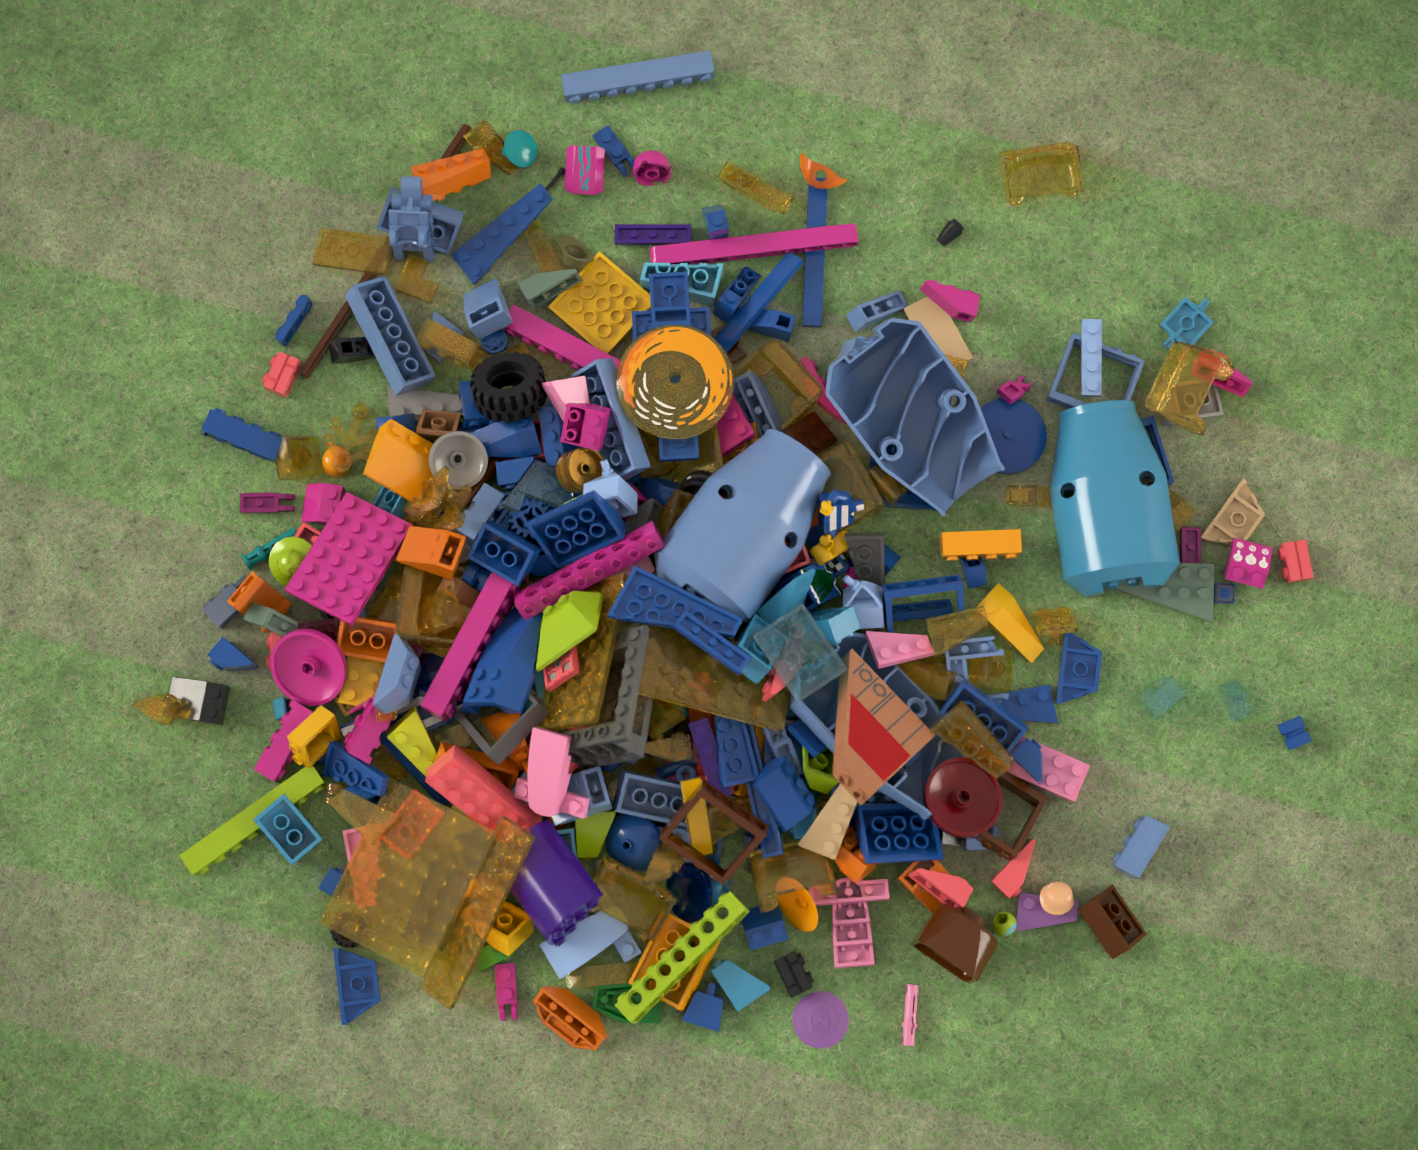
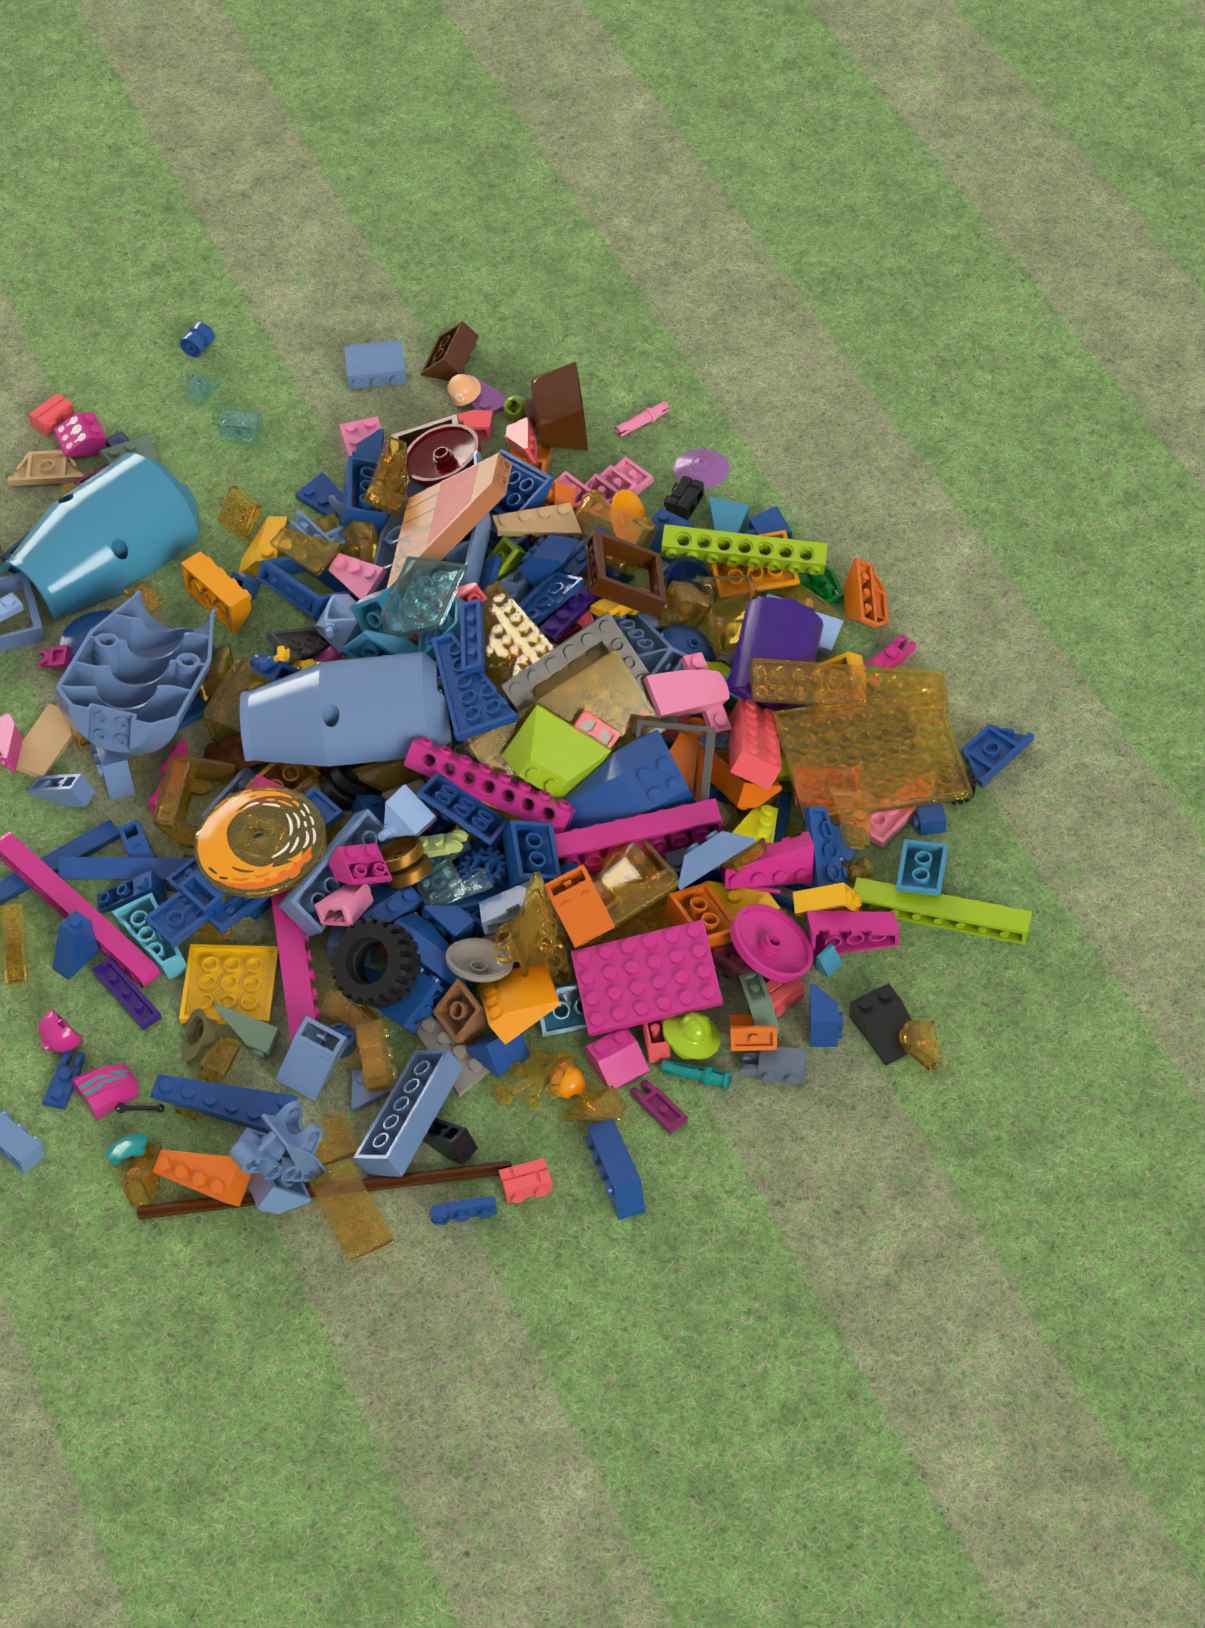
camera: 125 degrees left, 30 degrees down
(1078, 669) = (270, 483): blue wing -> none

